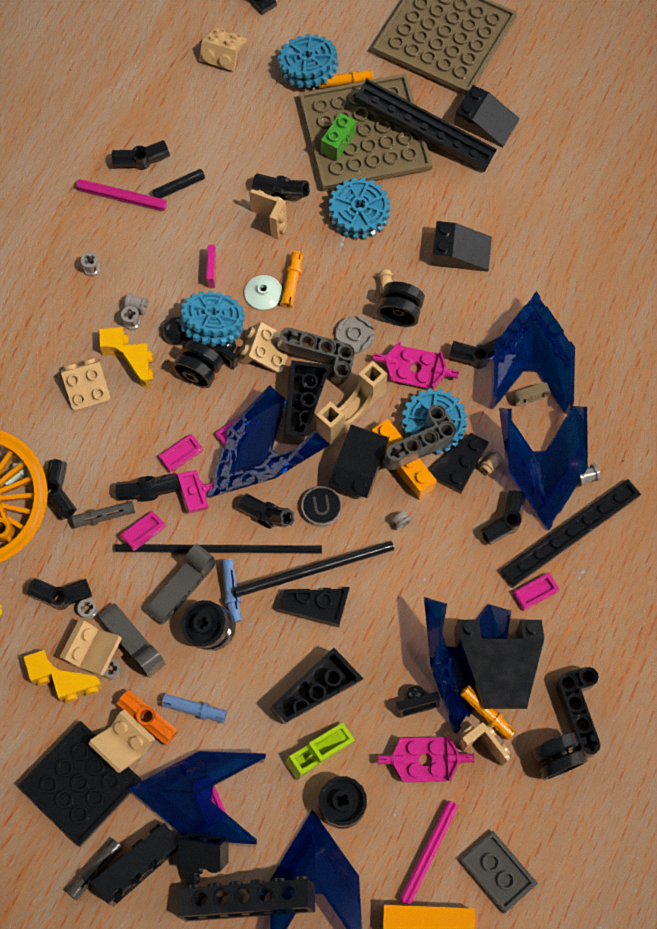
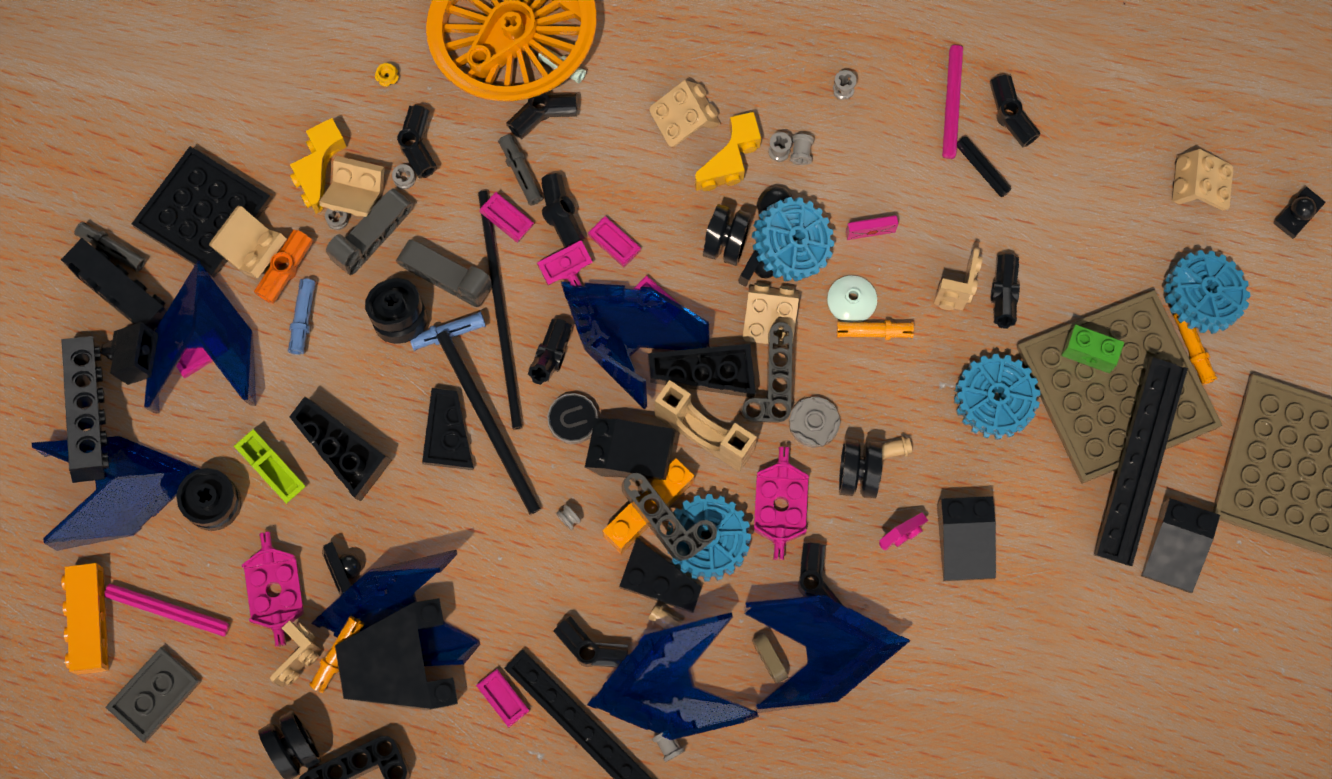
camera: 80 degrees right, 5 degrees up
(453, 286) = (903, 532): none -> dark pink plate

